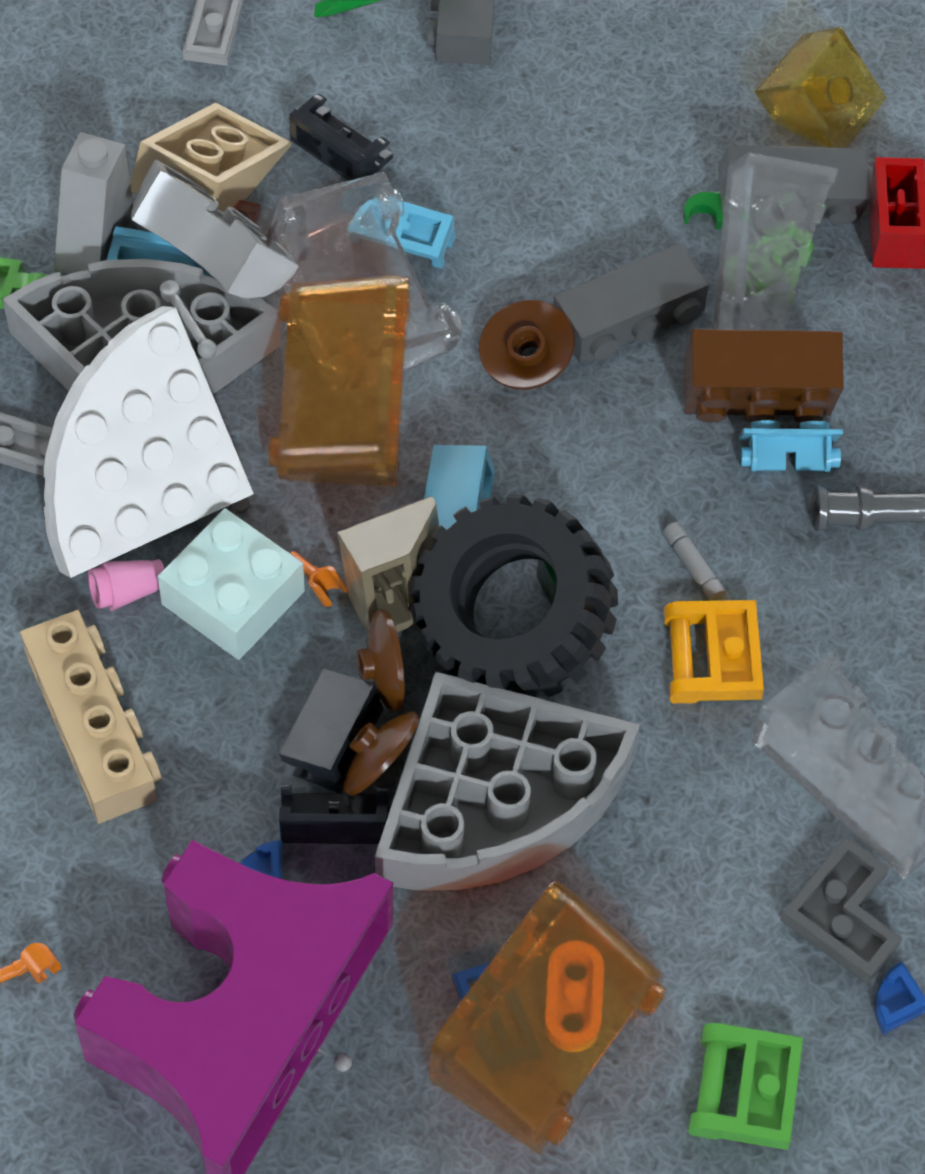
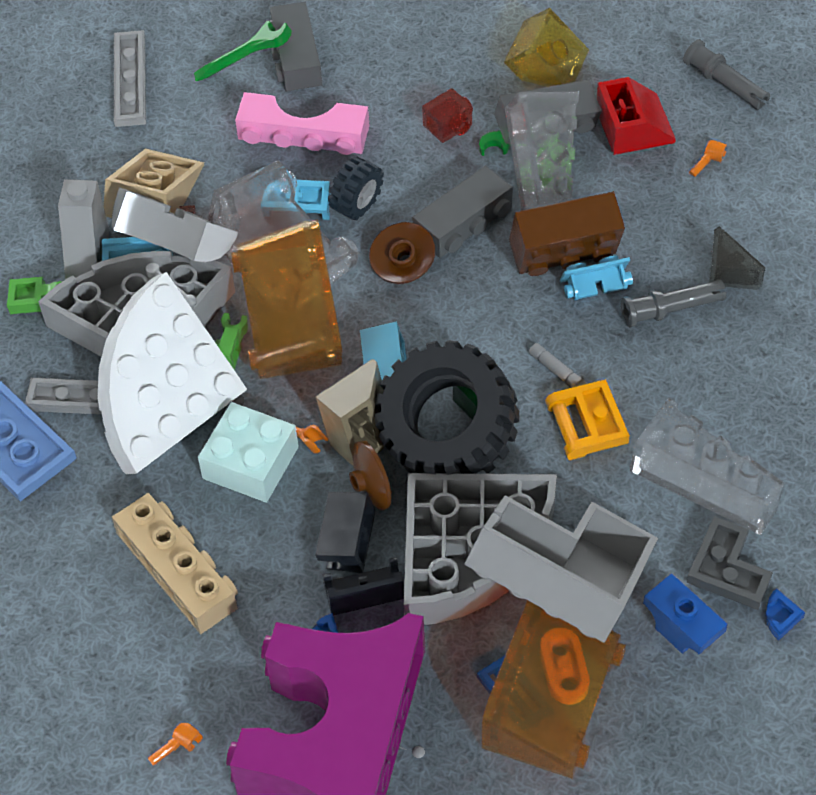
camera: 10 degrees left, 5 degrees down
(123, 582) = (172, 469): bright pink cone -> none
(251, 421) = (232, 337): none -> bright green plate
(336, 142) = (233, 156): black hinge -> none
(377, 750) = (383, 535): reddish brown dish -> none
(488, 233) = (355, 188): none -> black wheel
(493, 138) = (339, 129): none -> bright pink arch
(603, 874) = (568, 574): none -> light grey piece
(652, 153) = (447, 115): none -> clear red brick
(756, 969) = (683, 616): none -> blue brick
(765, 1086) = (712, 695): bright green plate -> none

